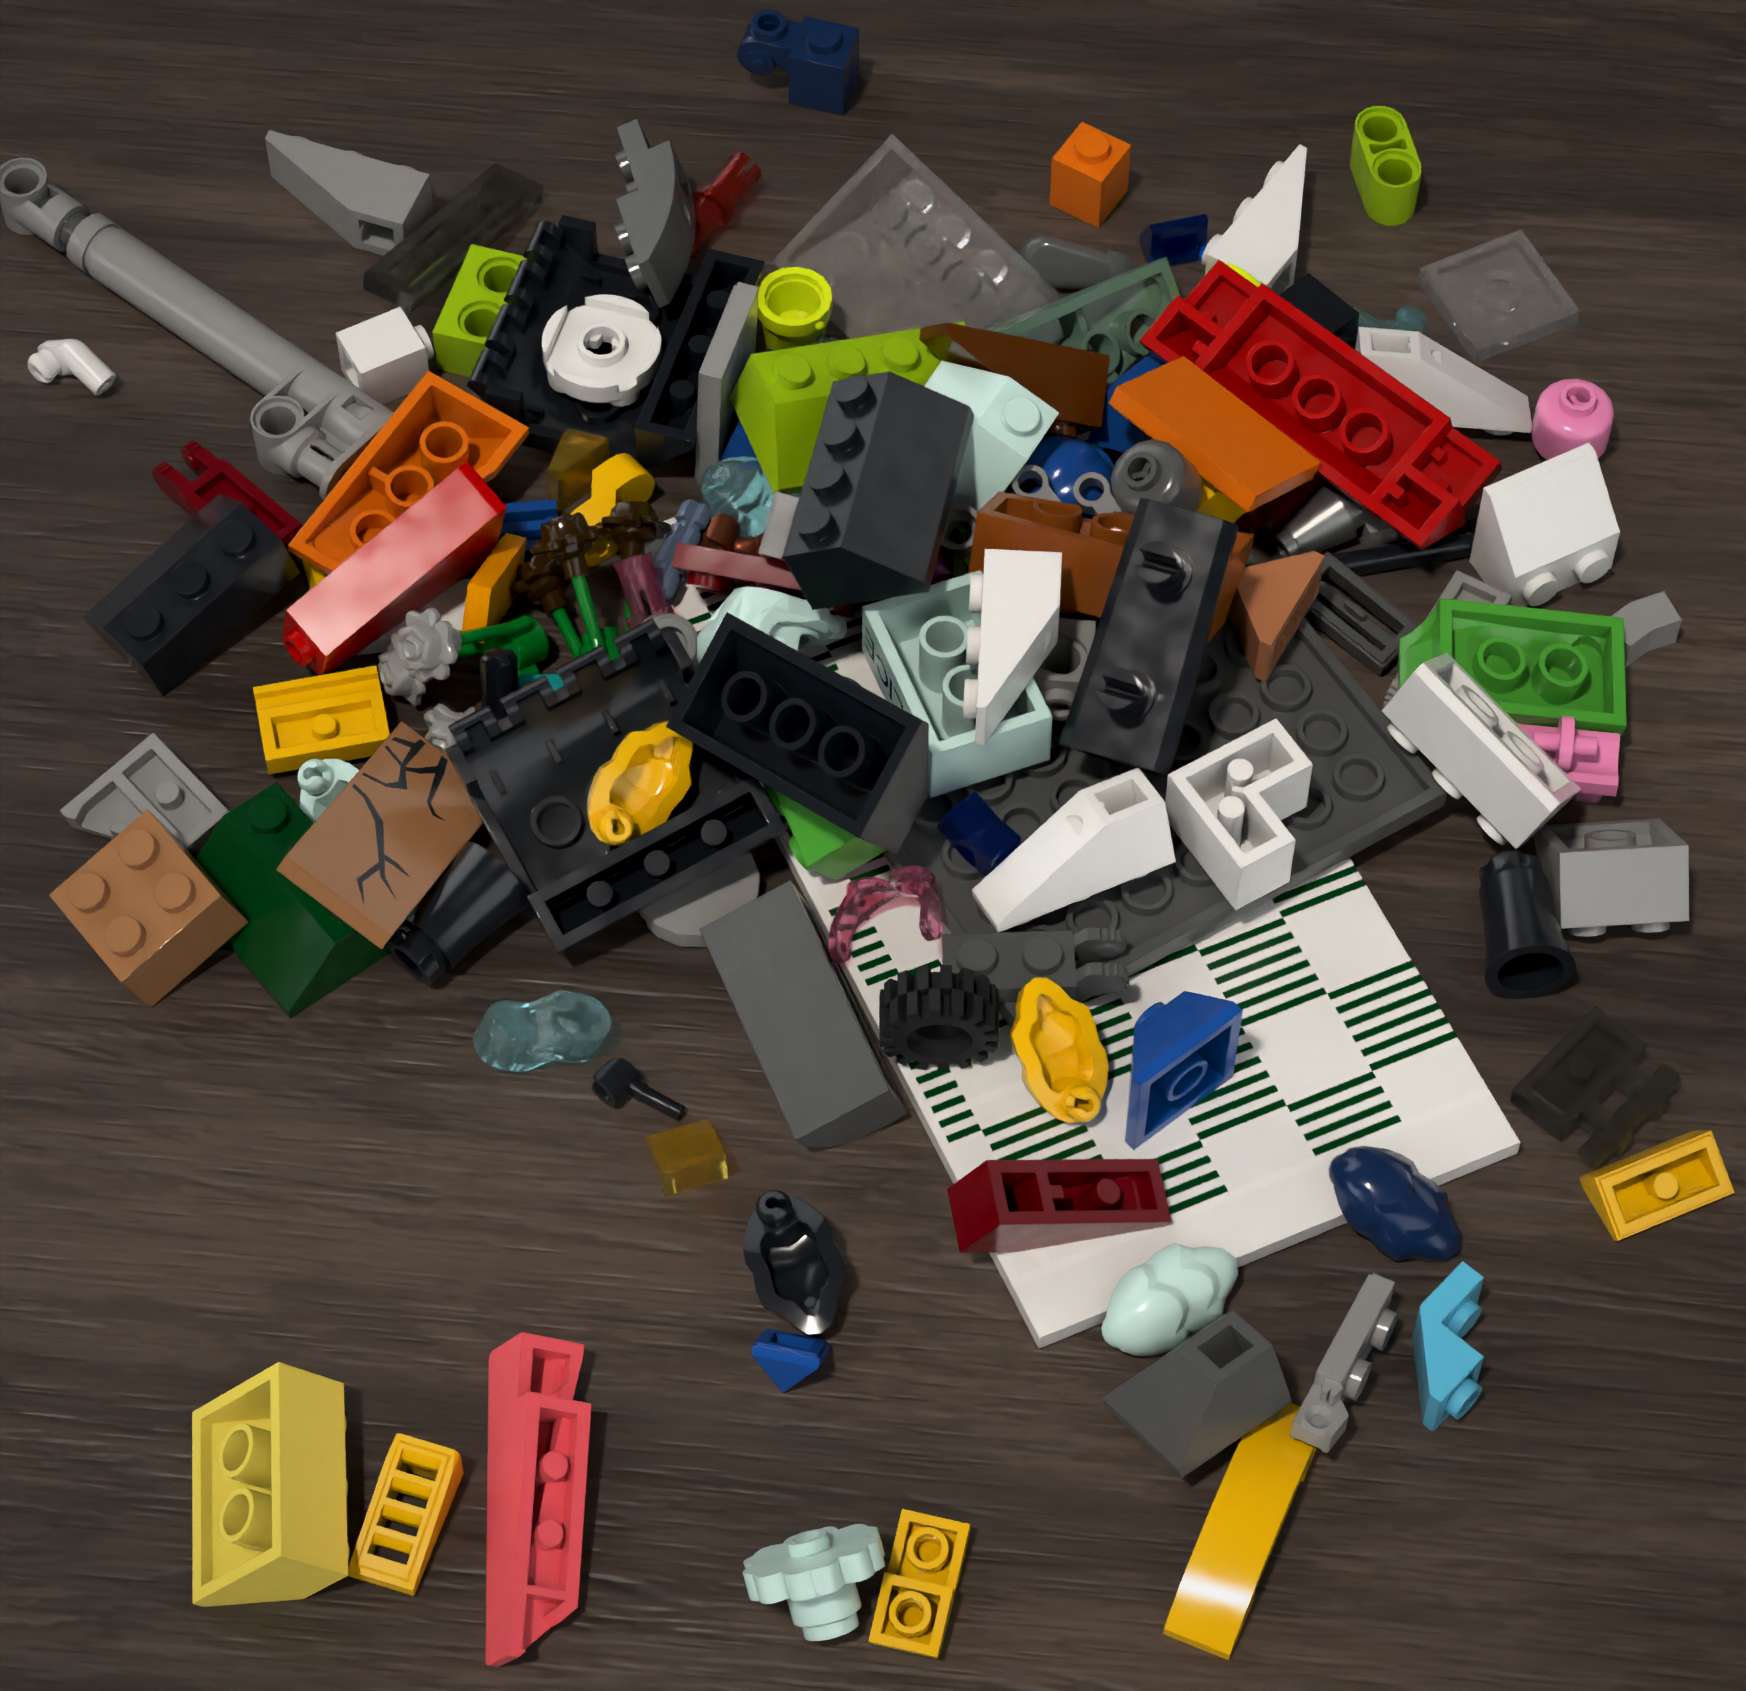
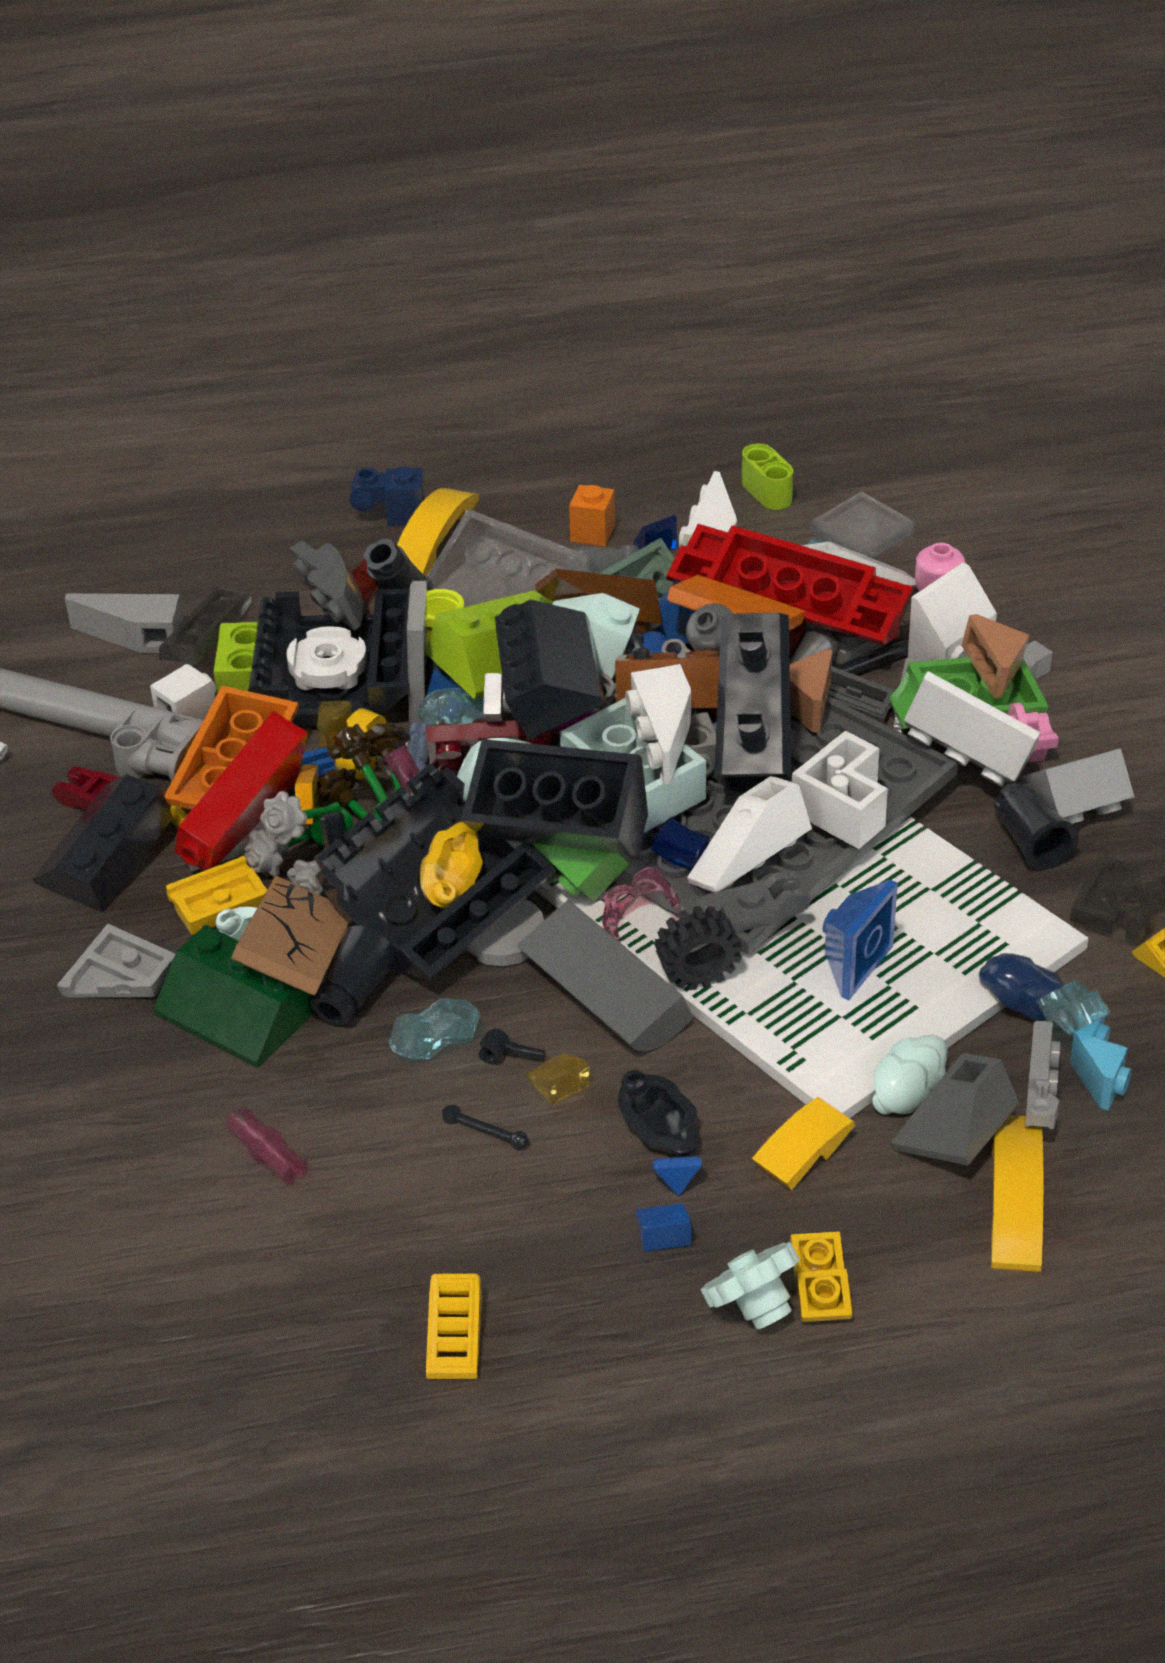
camera: 15 degrees left, 15 degrees down
(148, 908) = (142, 1017): medium nougat brick -> none
(256, 1154) = (266, 1145): none -> clear pink pin
(269, 1490) = (353, 1335): light yellow slope -> none
(524, 1175) = (453, 1115): none -> black hinge
(533, 1491) = (535, 1290): coral wedge -> none
(740, 1438) = (664, 1227): none -> blue slope
(753, 224) = (391, 566): none -> black plant
(840, 131) = (432, 523): none -> yellow slope
(978, 1361) = (801, 1140): none -> yellow slope
(1022, 506) = (636, 641): none -> black hinge
(1055, 1202) = (810, 1033): dark red slope -> none
(1059, 1052) = (782, 950): yellow arm -> none
(1429, 1270) = (1073, 1006): none -> clear light blue piece
(1575, 619) = (994, 651): none -> nougat slope

